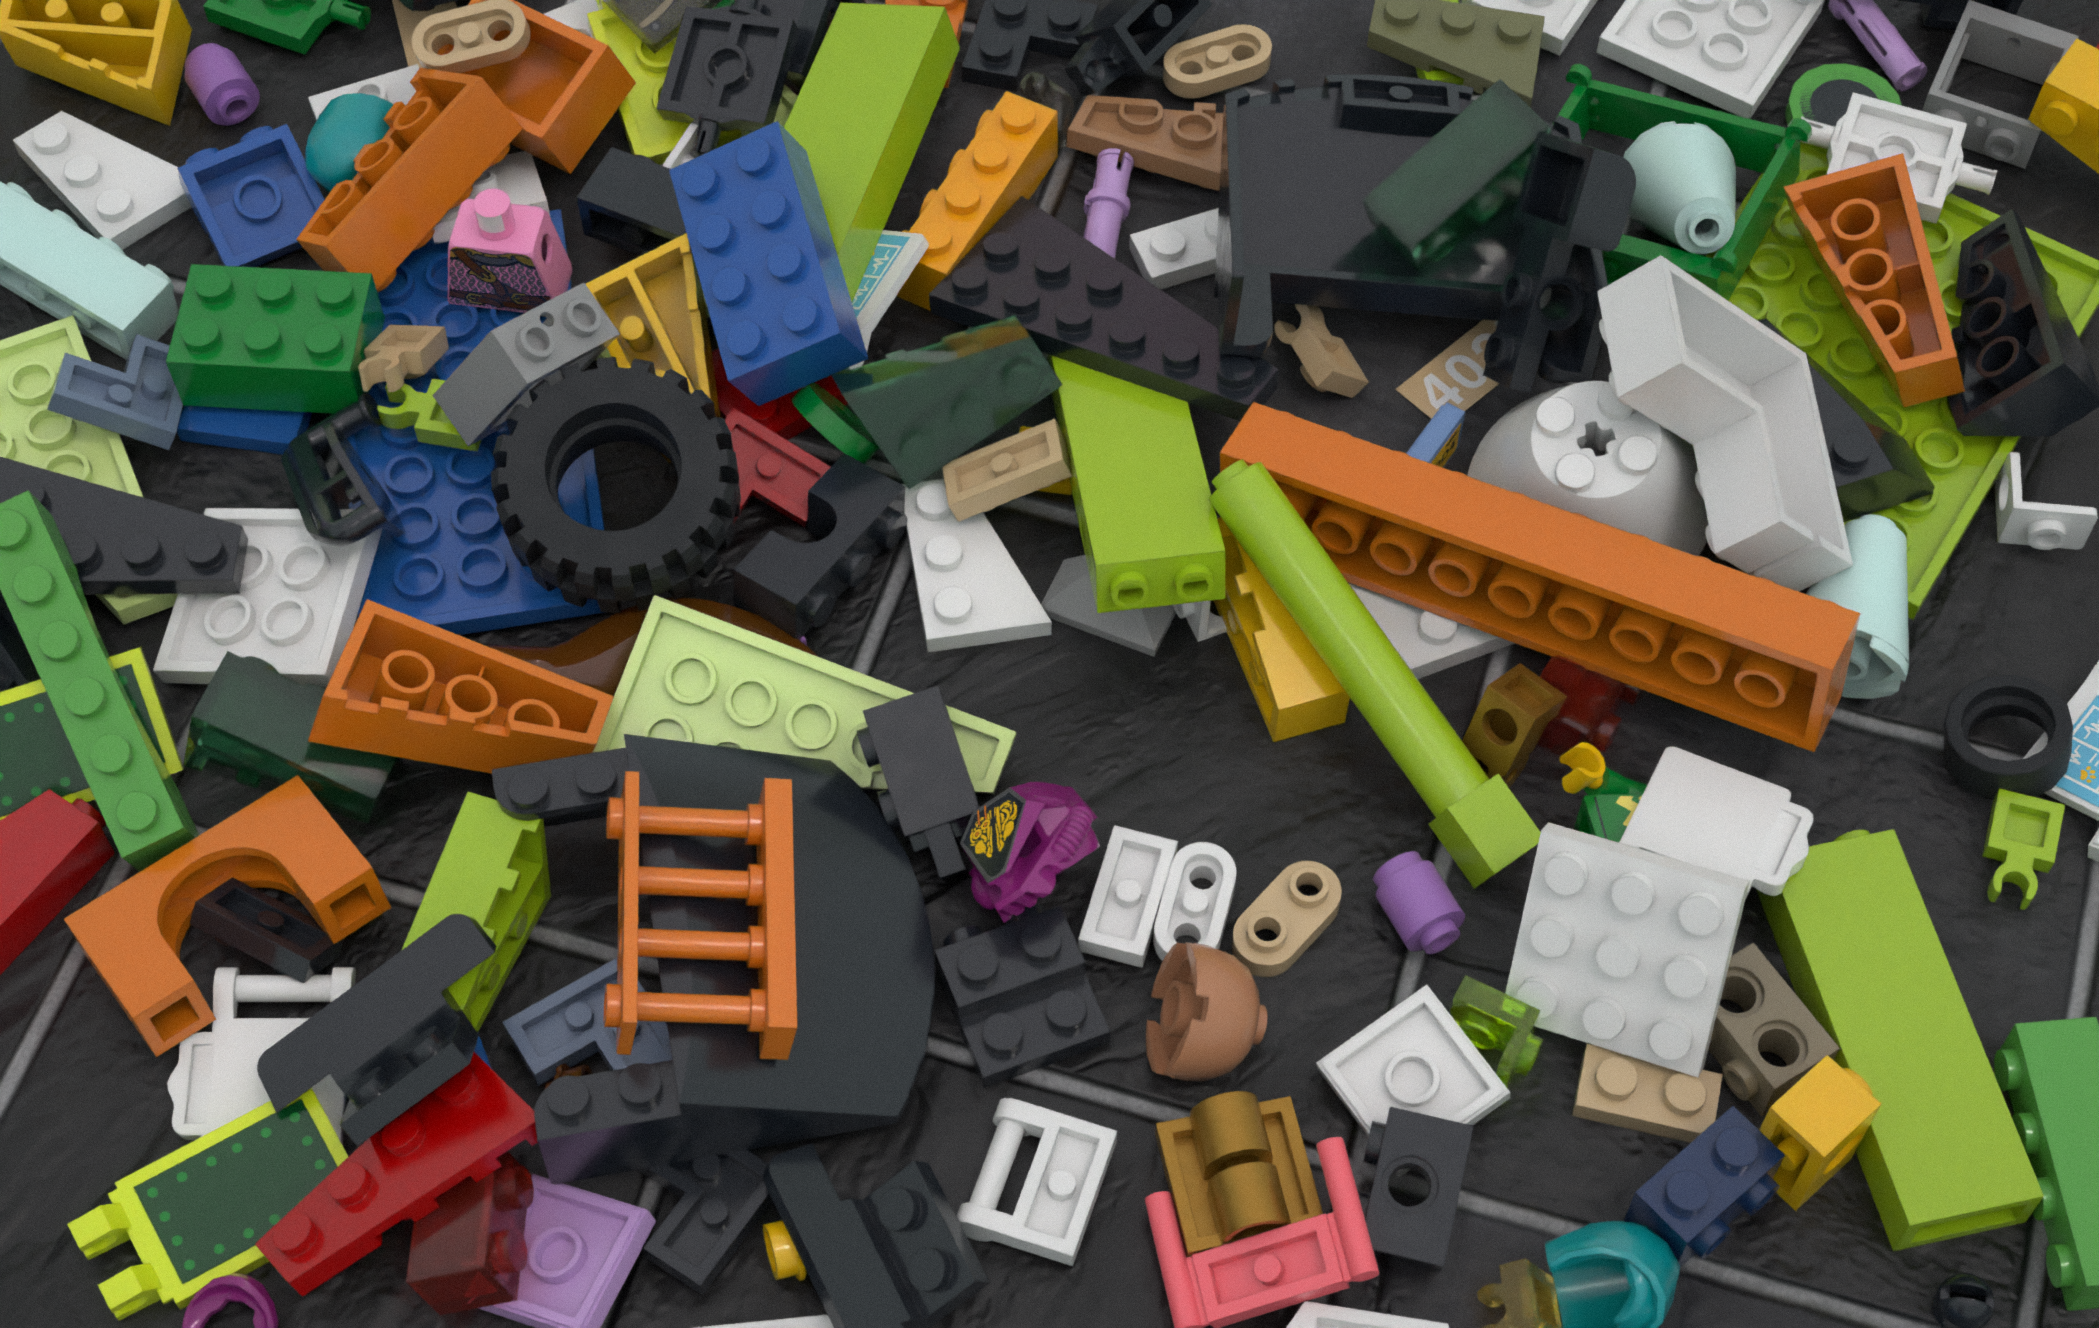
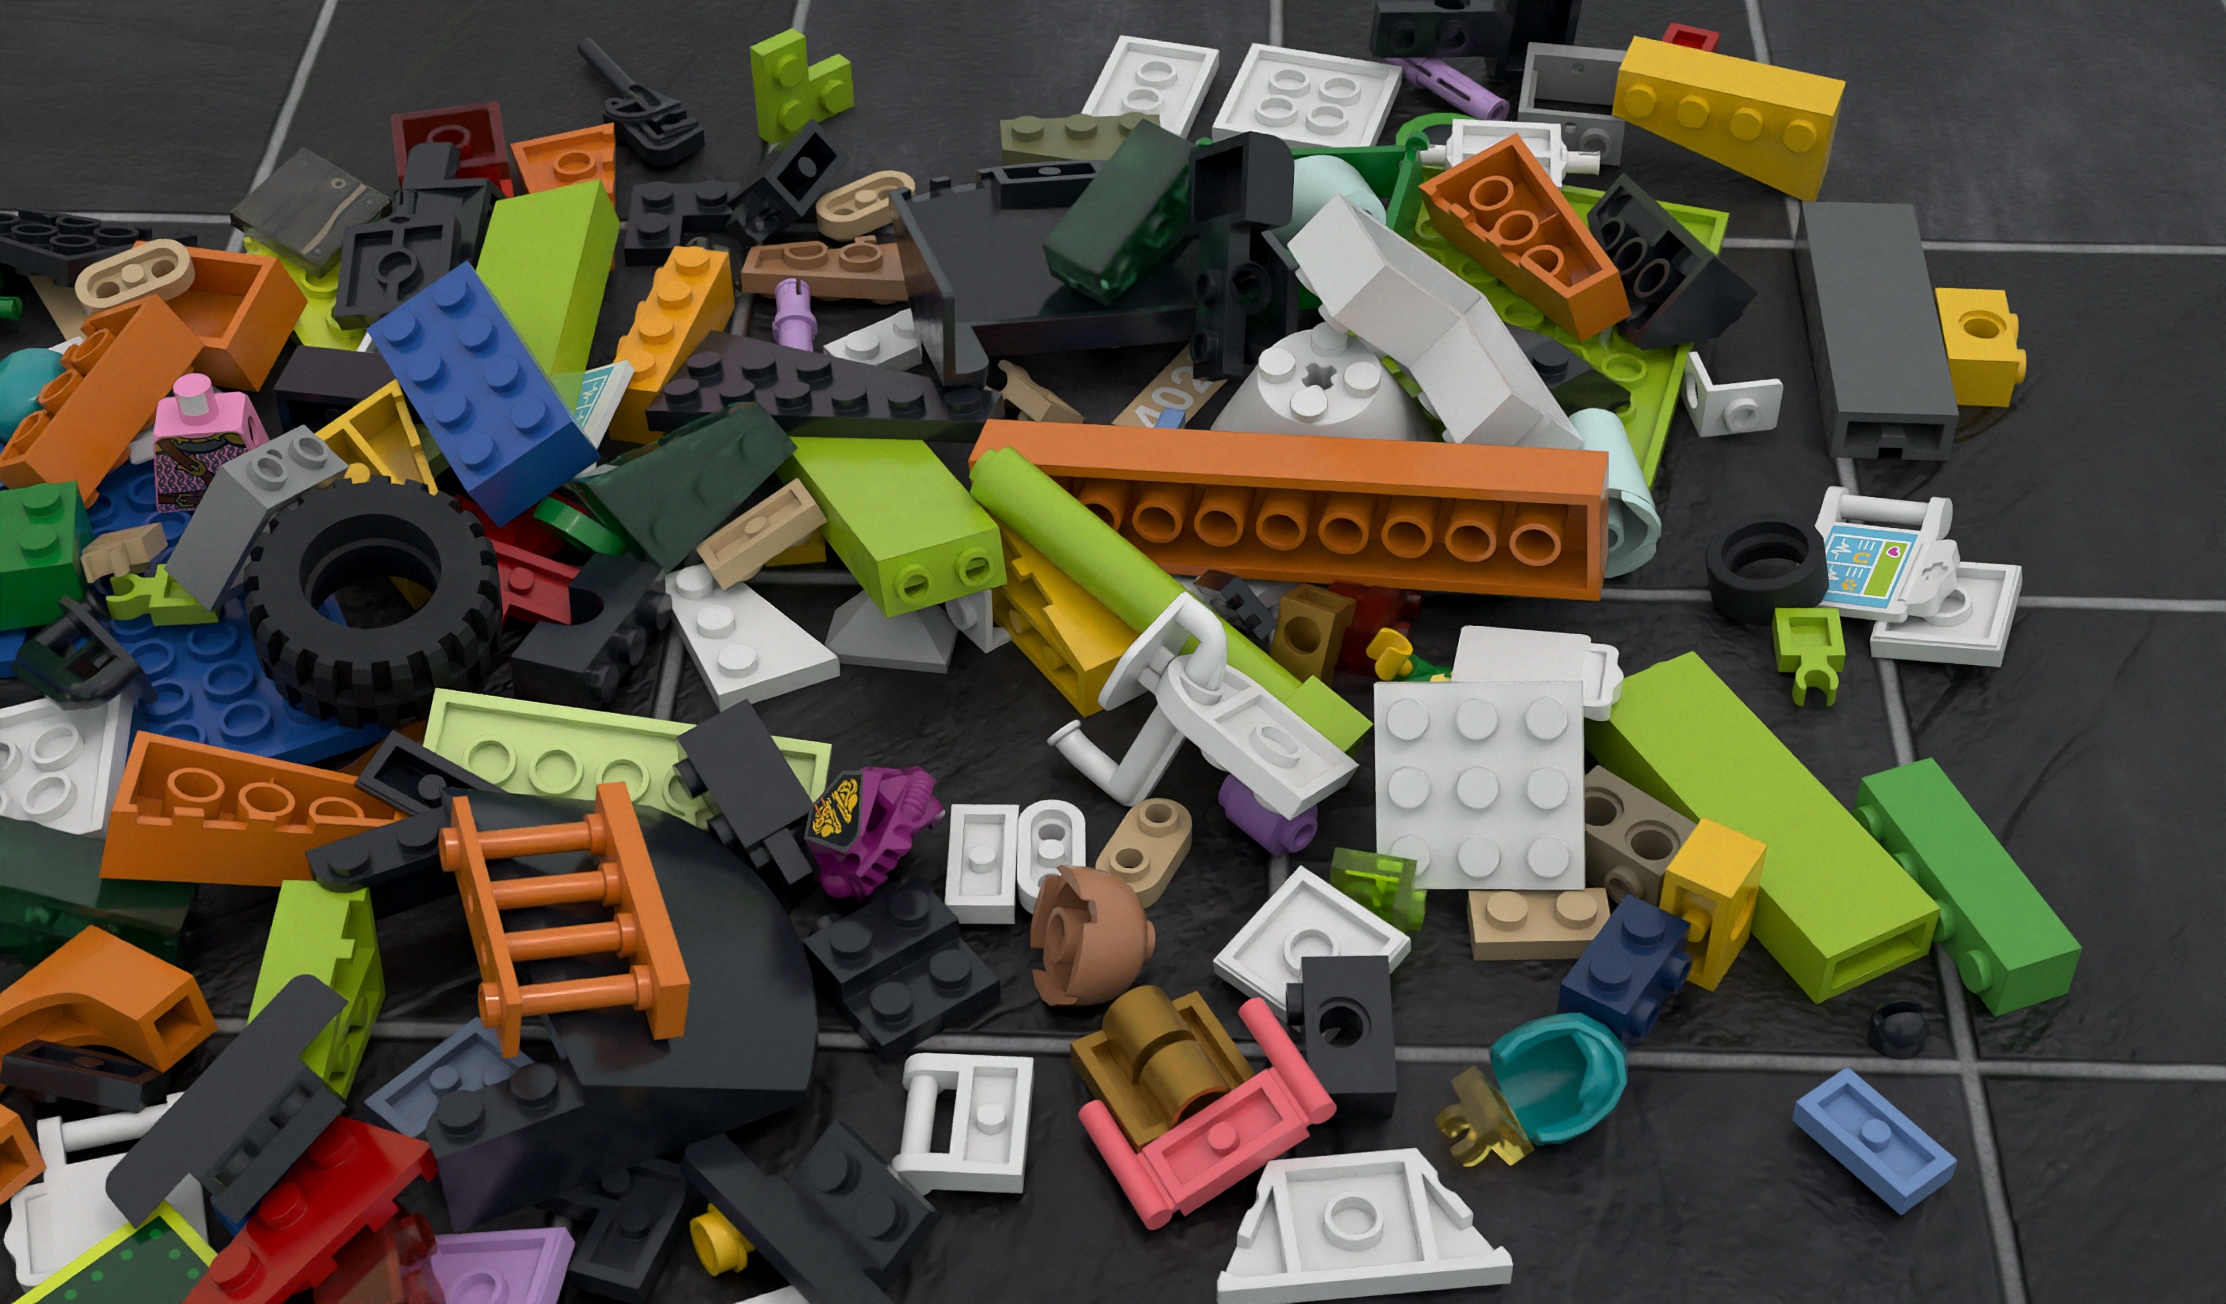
camera: 15 degrees left, 15 degrees down
(622, 701) = (409, 776): none -> black slope
(1389, 813) = (1214, 707): none -> white plate
(1447, 666) = (1238, 601): none -> black tile

